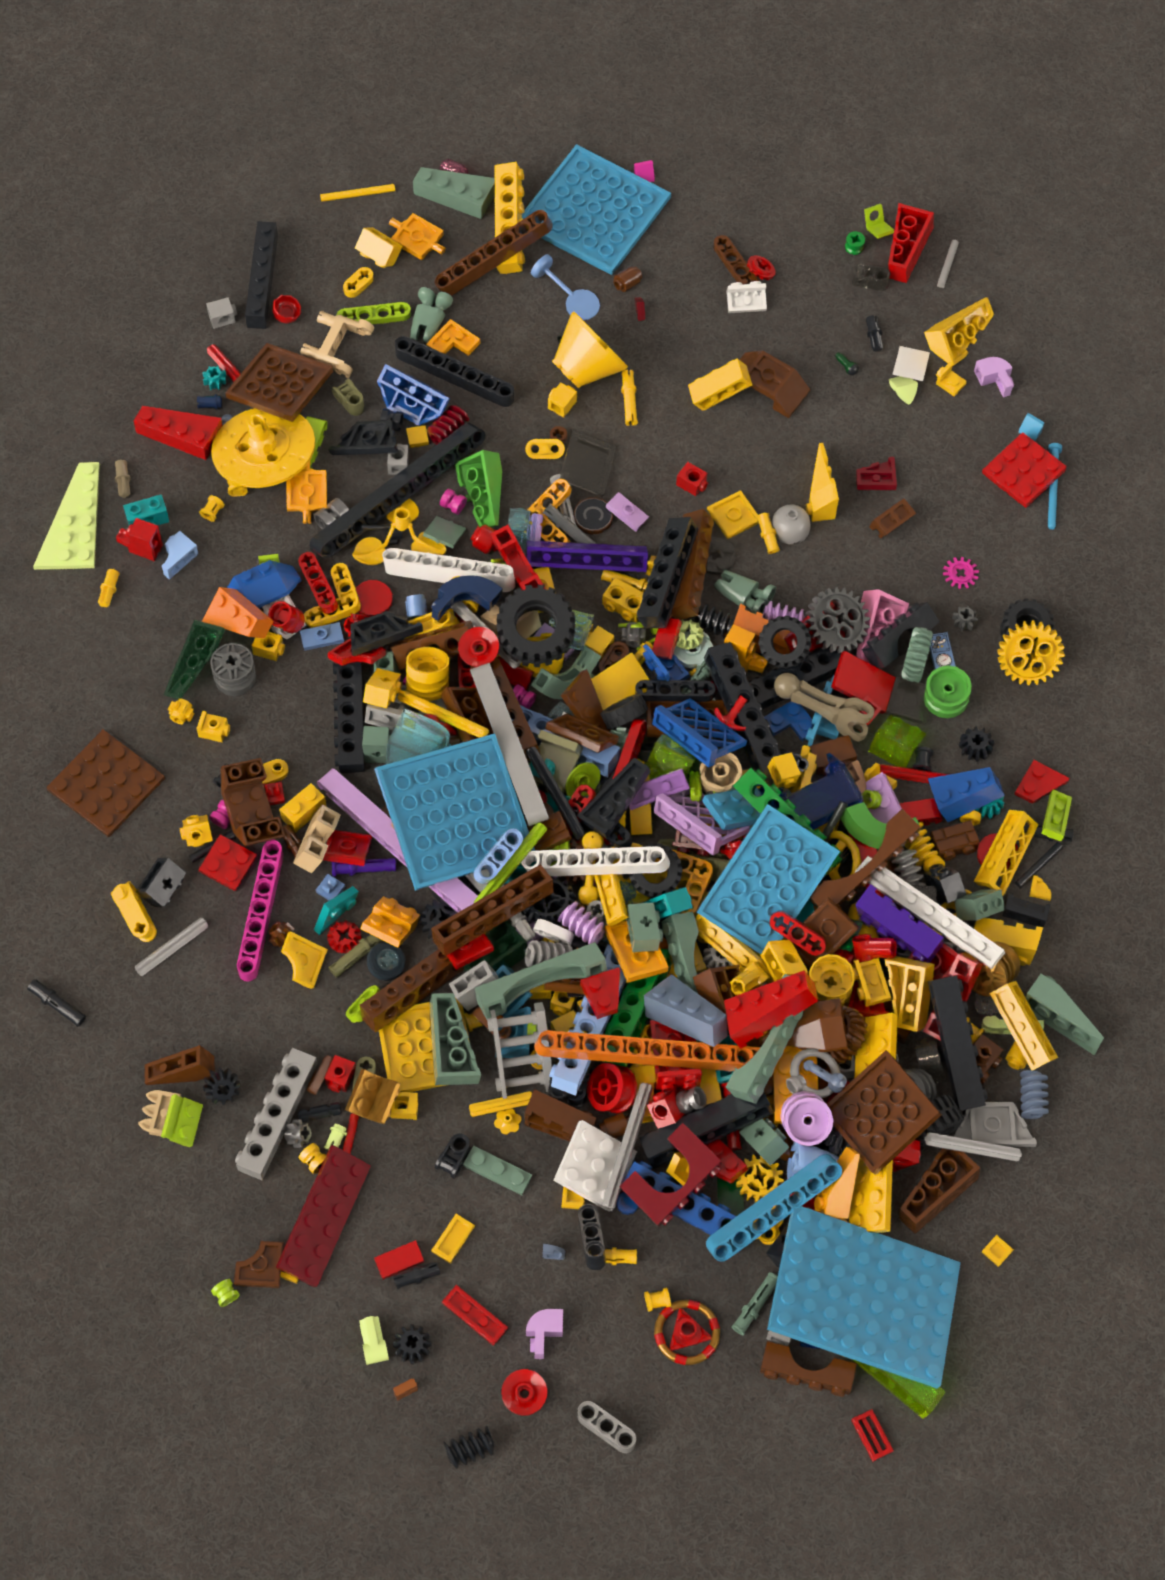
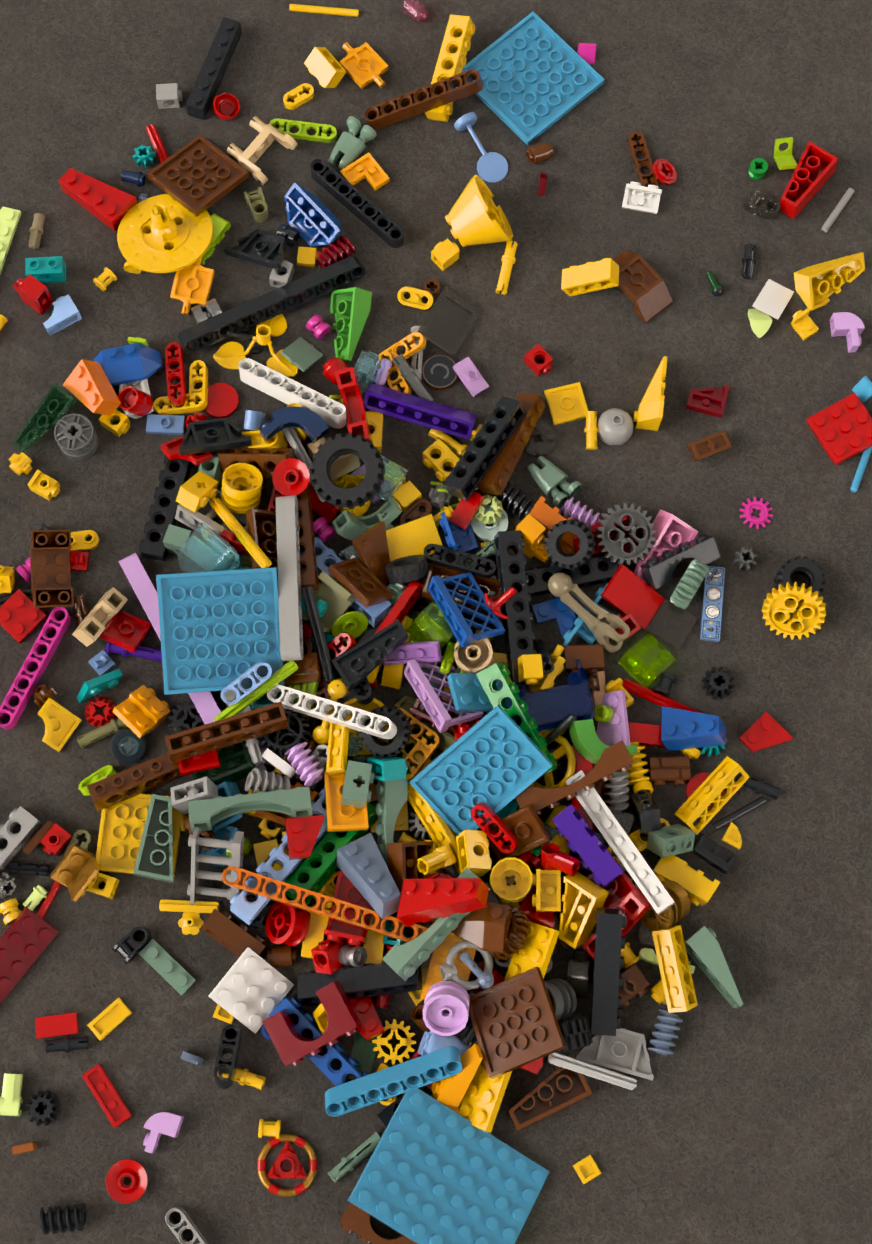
camera: 15 degrees right, 10 degrees up
(302, 807) = (98, 582): yellow brick -> none
(455, 190) = (412, 30): sand green wedge -> none
(627, 1145) = (284, 981): light grey axle -> none
(765, 1140) = (407, 1012): sand green brick -> none
(947, 691) = (716, 625): bright green wheel -> none
(1056, 815) = (769, 773): lime plate -> none

